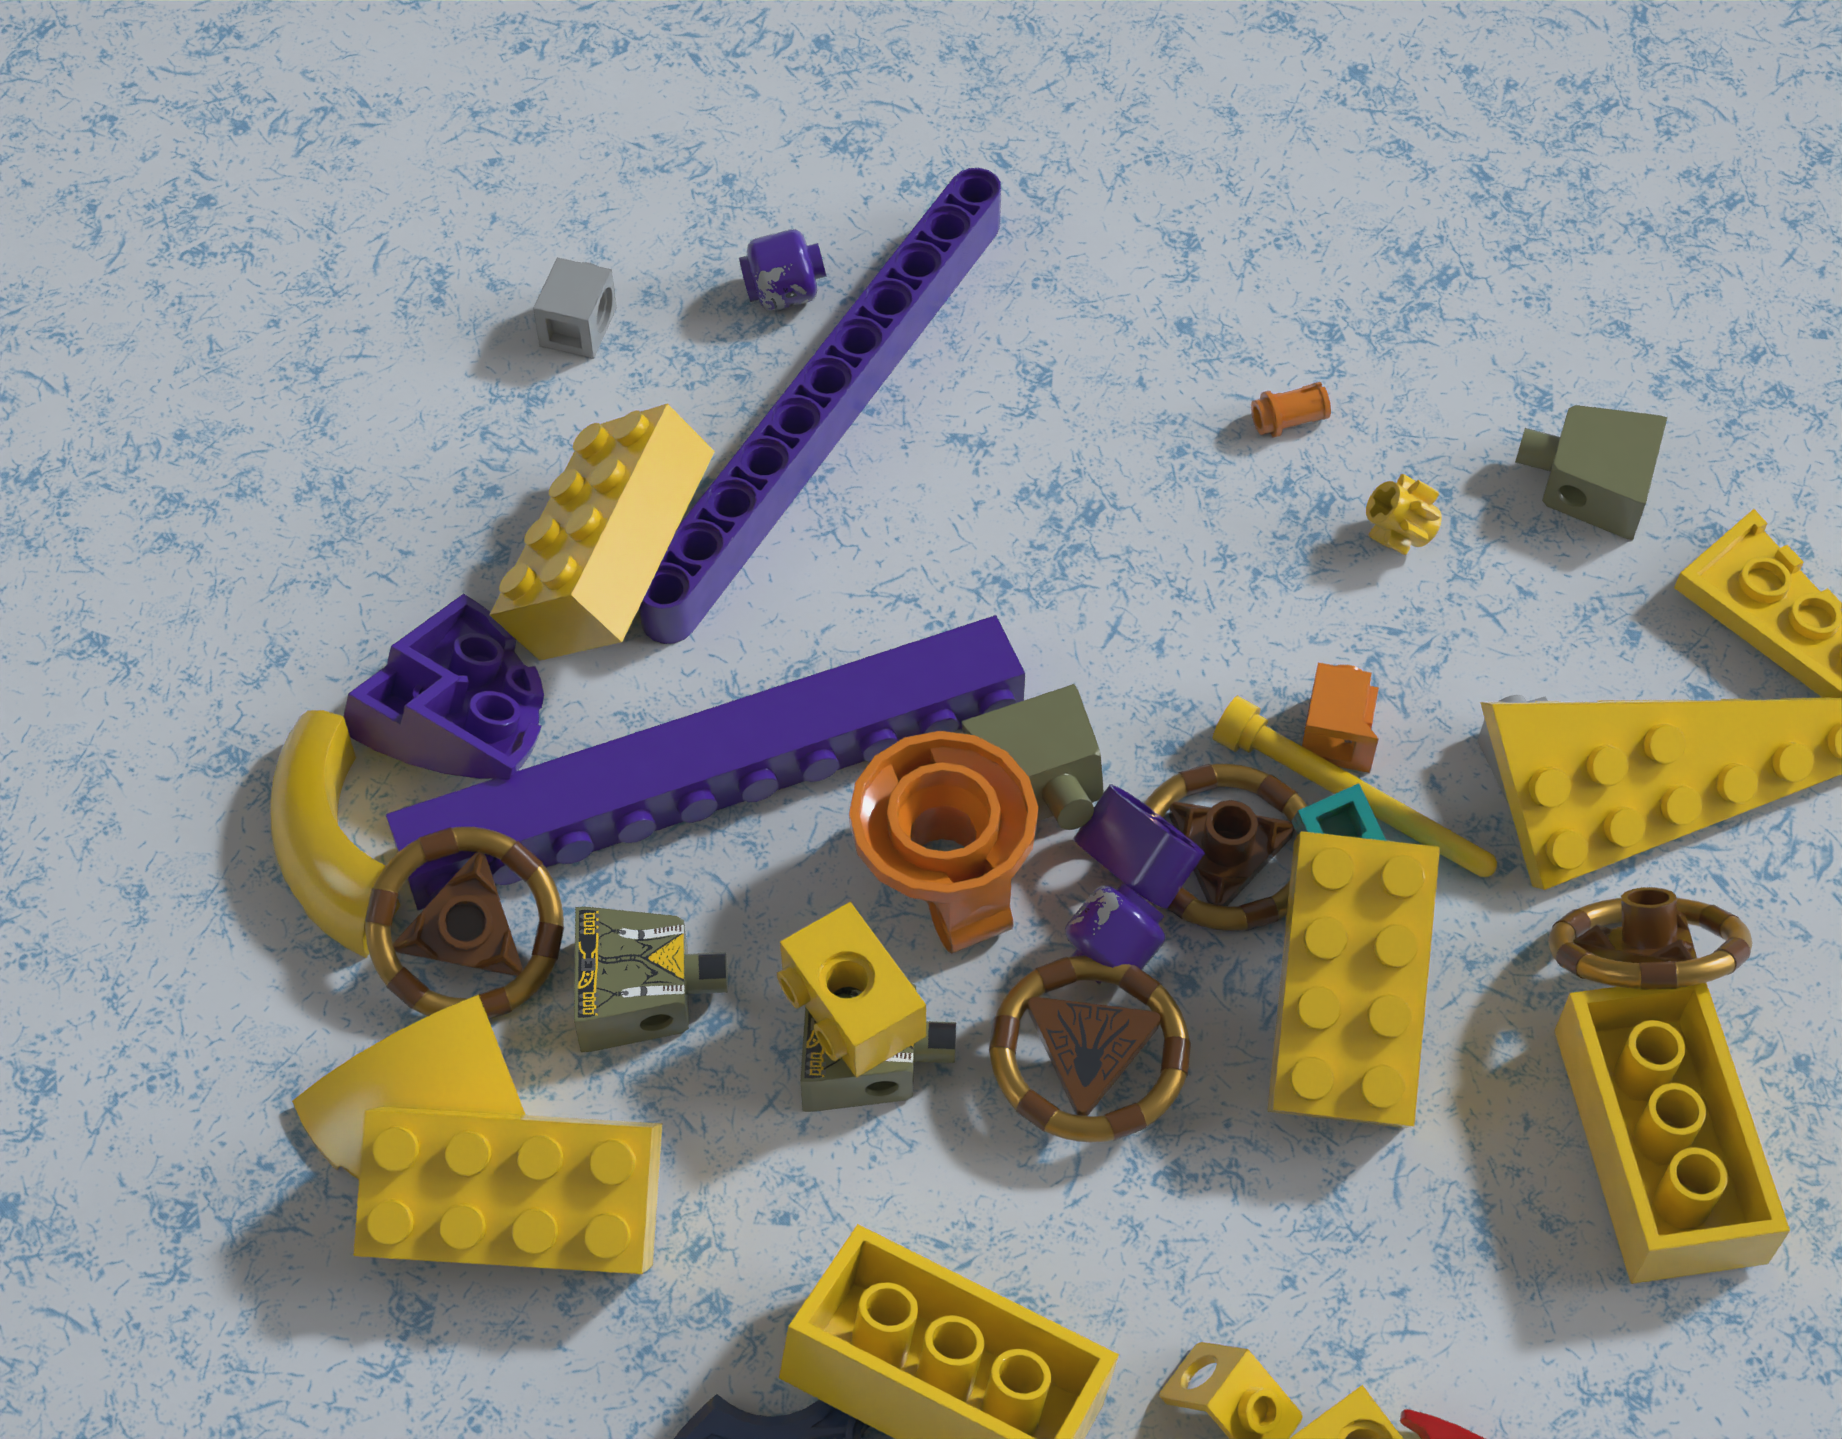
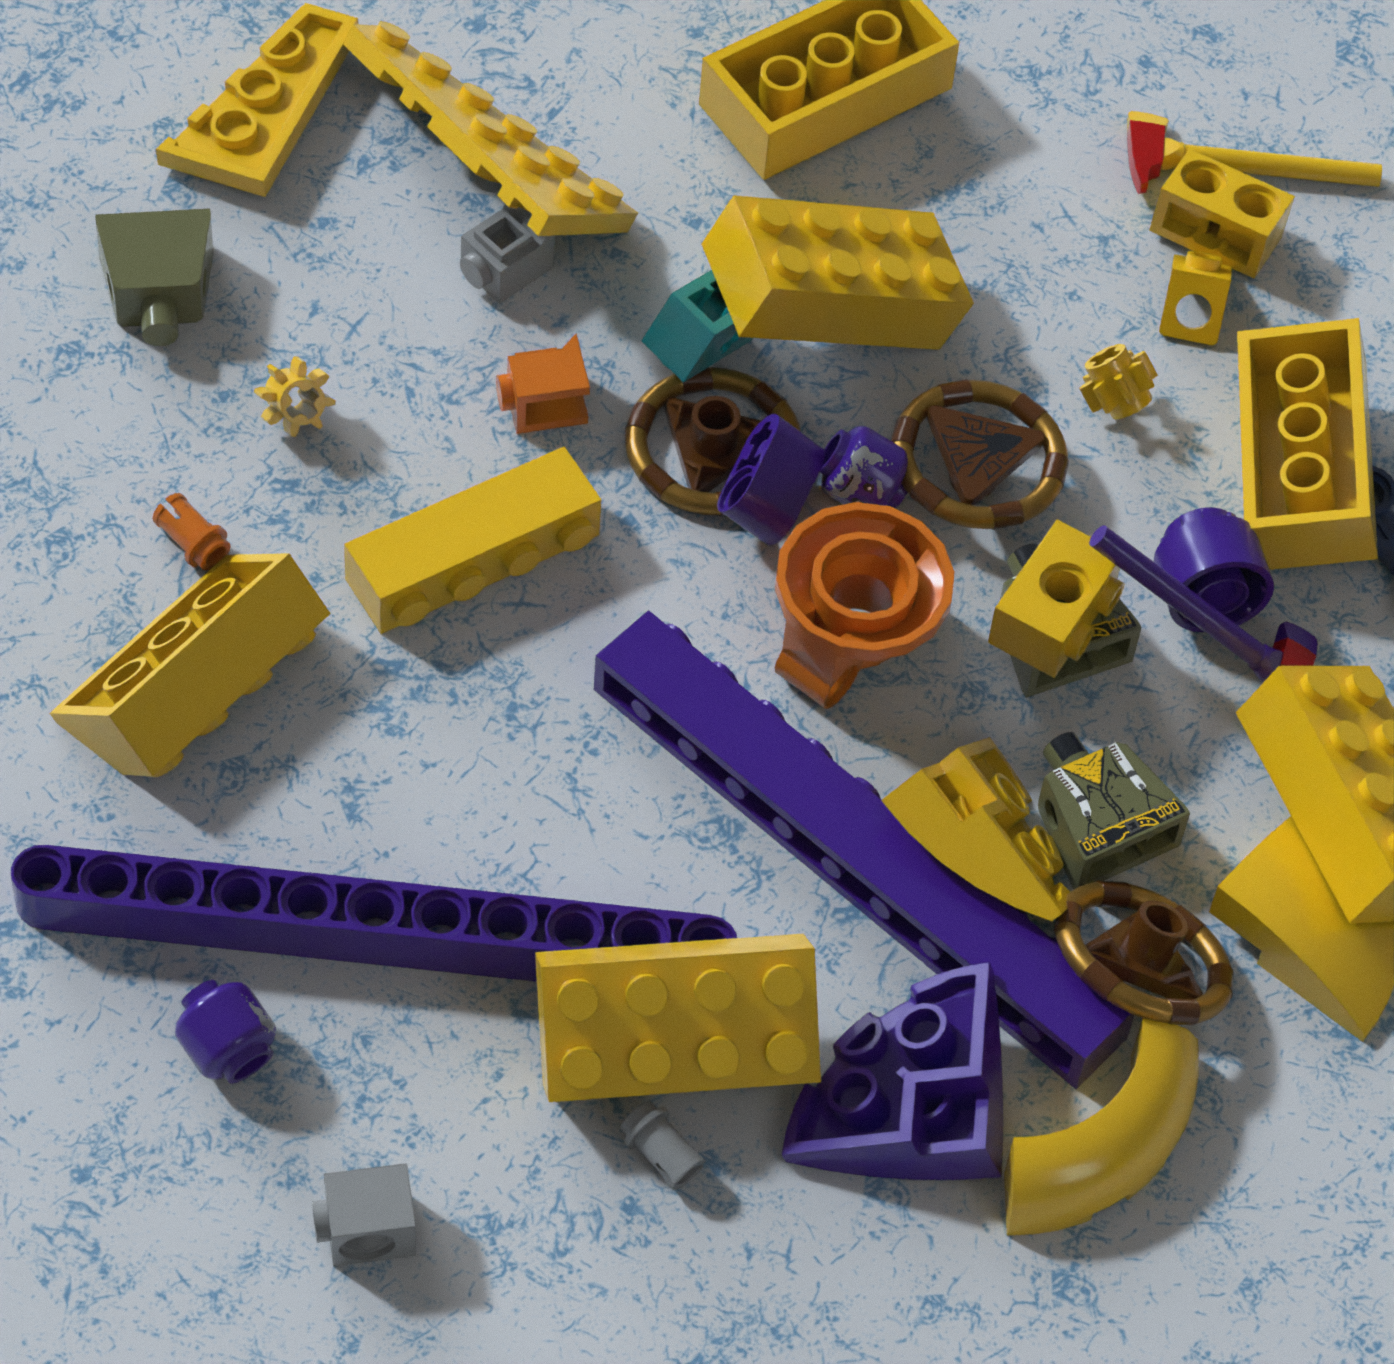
camera: 120 degrees left, 0 degrees up
(514, 514) = (661, 1144): none -> light grey pin
(658, 844) = (974, 823): none -> yellow brick
(705, 1223) = (1292, 643): none -> dark purple piece
(844, 1190) = (1218, 561): none -> dark purple piece
(1054, 747) = (720, 579): olive torso -> none
(1129, 1235) = (1118, 381): none -> yellow gear
(1144, 359) = (193, 663): none -> yellow slope
(1184, 597) = (472, 540): none -> yellow brick
(1246, 729) = (594, 449): yellow piece -> none
(1652, 944) = (675, 111): reddish brown piece -> none

